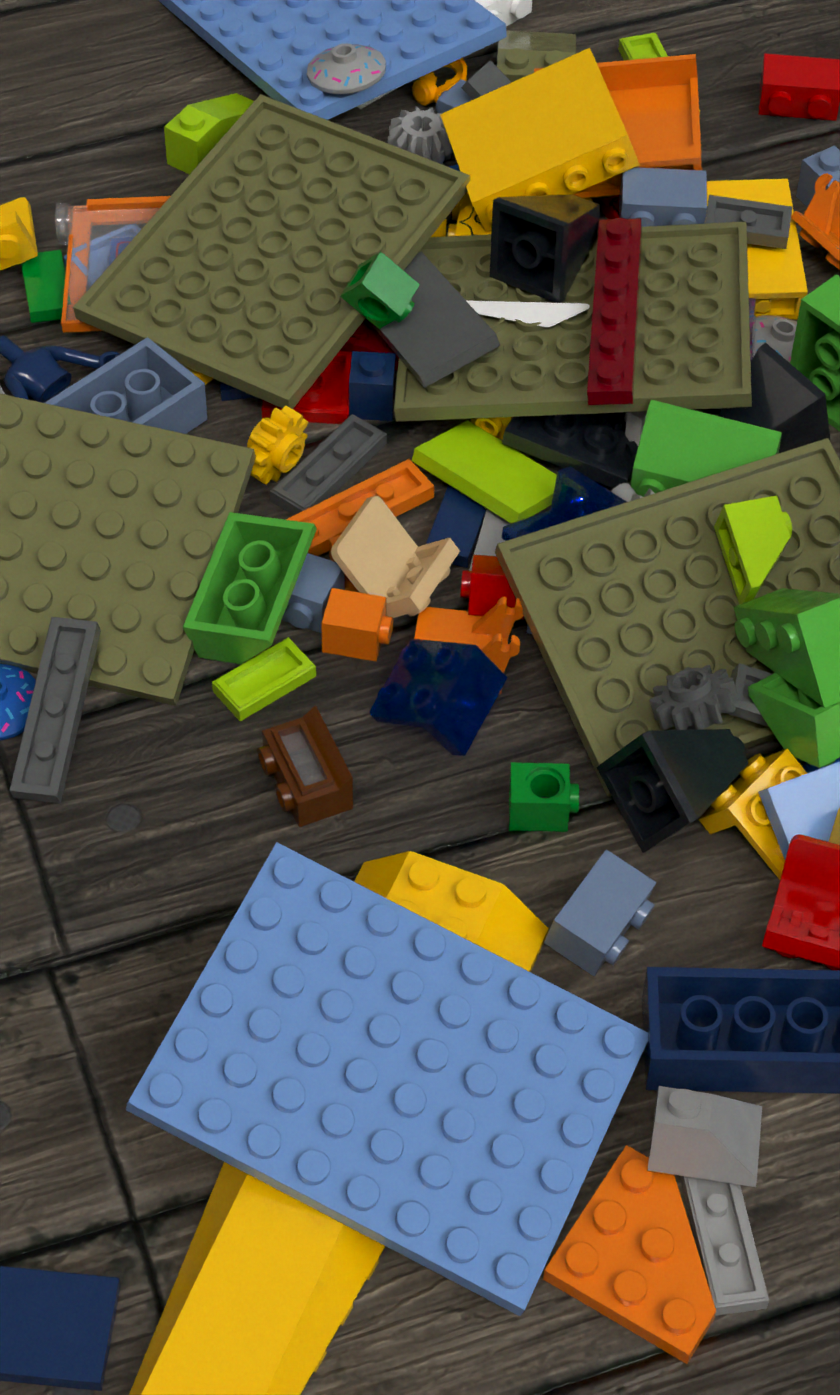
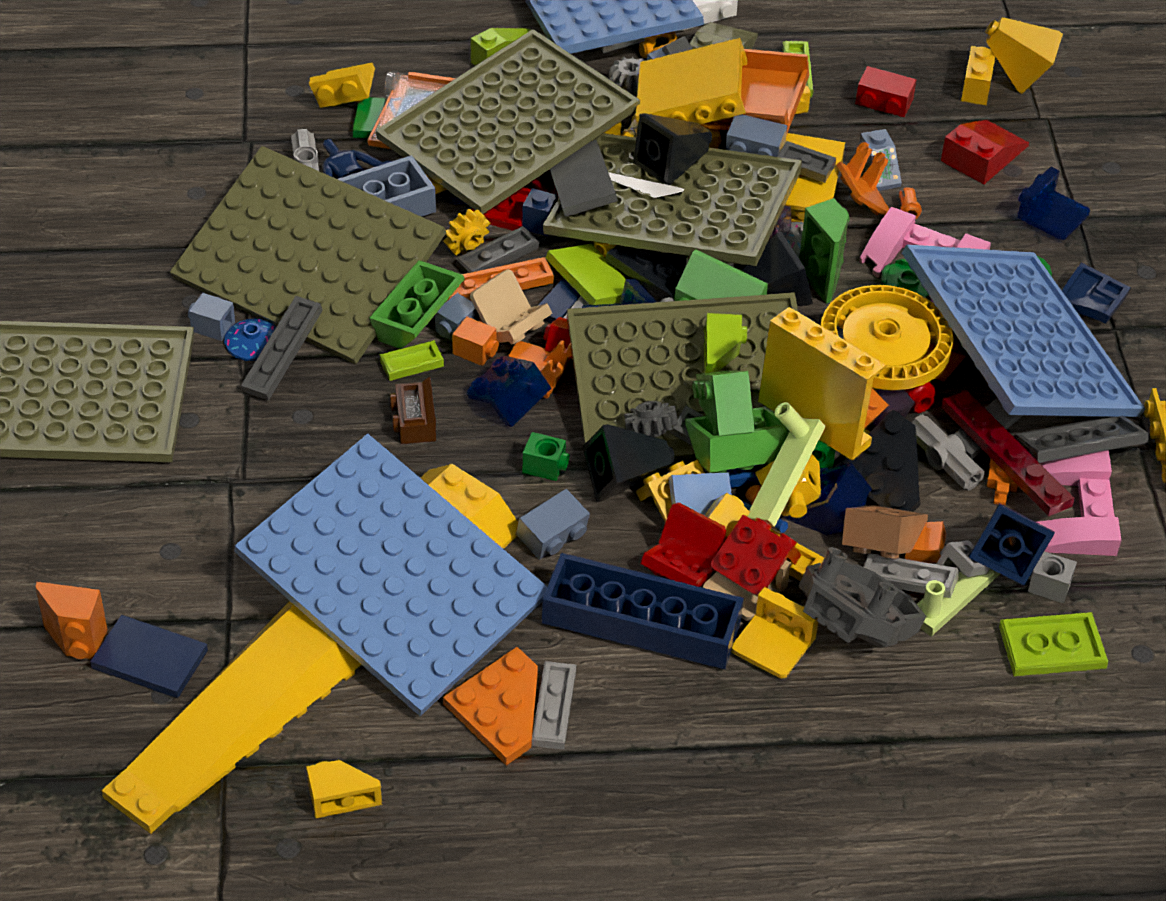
camera: 15 degrees right, 5 degrees down
(346, 69) = (592, 24): light grey dish -> none
(381, 291) = (557, 155): green brick -> none
(615, 312) = (696, 195): dark red plate -> none
(705, 1136) = (560, 648): light grey slope -> none

